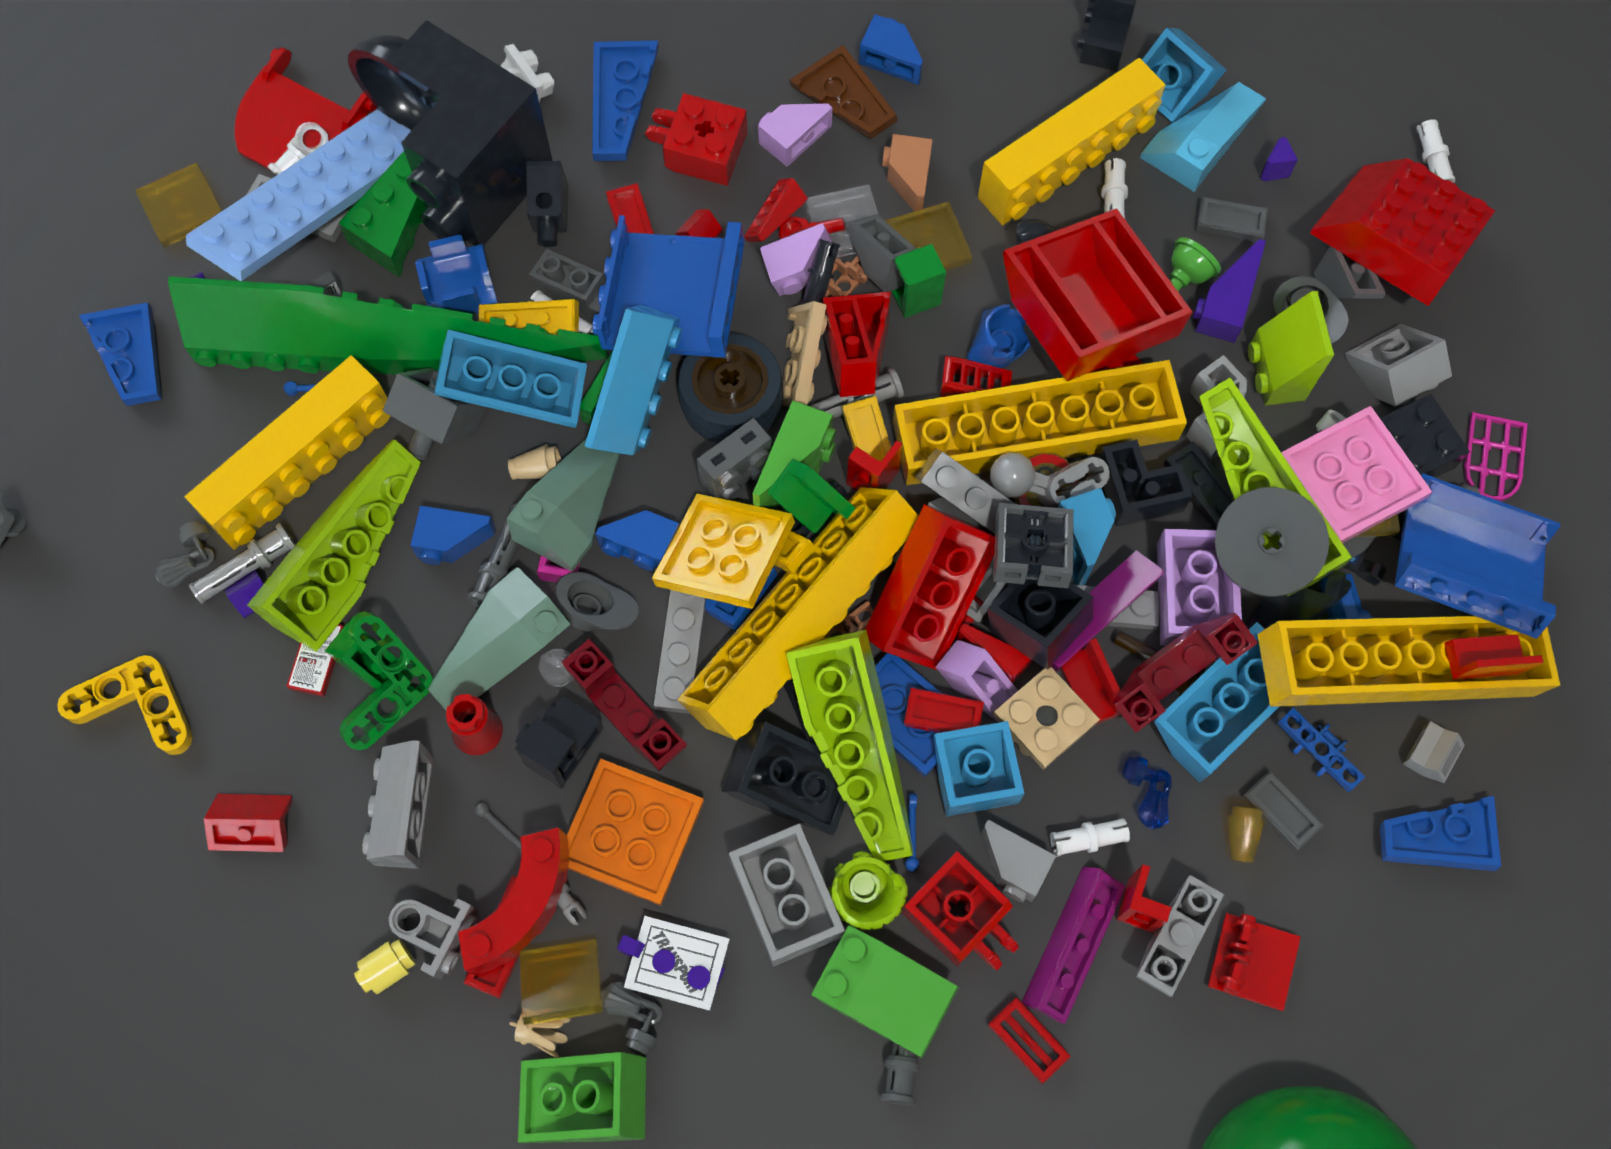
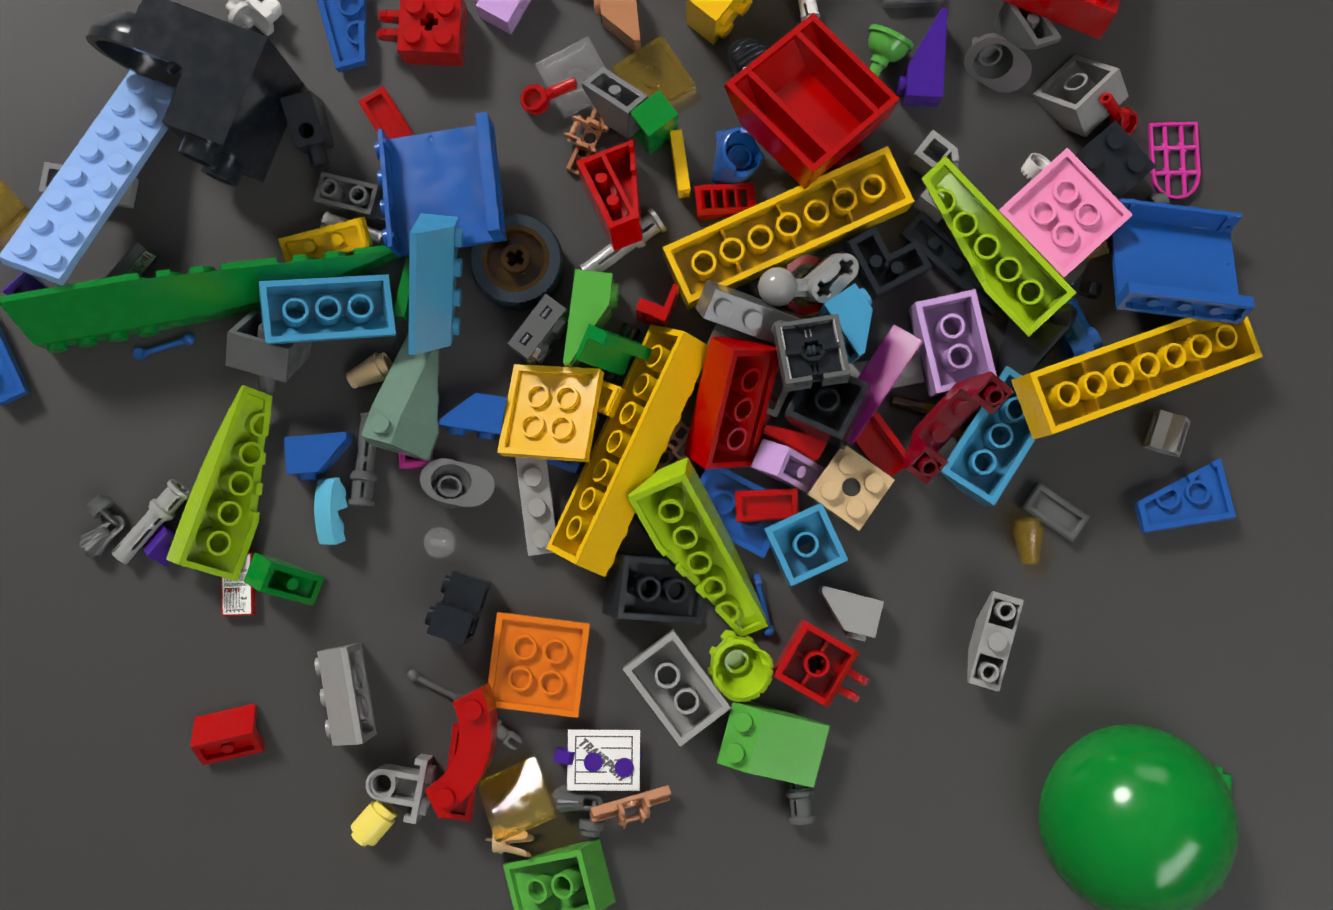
camera: 15 degrees left, 15 degrees up
(132, 688) = (97, 648): yellow beam -> none
(278, 106) = (53, 103): red piece -> none
(291, 453) = (158, 420): yellow brick -> none
(297, 149) = (71, 132): white connector -> none
(385, 218) = (170, 180): green wedge -> none
(395, 687) = (311, 596): green beam -> none
(448, 585) = (328, 500): none -> medium azure slope
(456, 276) = (250, 218): blue panel -> none
(480, 733) = (396, 608): red plant -> none
(501, 636) = (387, 530): sand green wedge -> none
(622, 707) = (505, 565): dark red slope -> none
(676, 1021) = (642, 800): none -> nougat piece
(700, 224) = (450, 114): red slope -> none
(778, 207) = (513, 81): red slope -> none
(791, 257) = (542, 127): lavender slope -> none
(803, 343) = (570, 205): tan wing -> none
(821, 271) = (568, 136): black axle -> none
(867, 427) = (644, 272): yellow tile -> none
(935, 332) = (680, 164): none -> yellow tile
(1052, 1066) = (870, 731): red tile -> none
(1073, 944) = (910, 662): magenta slope -> none
(1089, 837) = (906, 574): white pin -> none
(1140, 910) = (952, 618): red panel -> none
(1154, 808) = (952, 537): clear blue piece -> none
(1254, 961) = (1055, 640): red hinge -> none
(1271, 571) = (1033, 293): dark grey piece -> none
(1291, 352) = (990, 111): lime slope -> none
(1330, 741) = (1086, 456): blue piece -> none
(1443, 394) = (1123, 115): none -> red plate
(1488, 657) = (1203, 353): red panel -> none

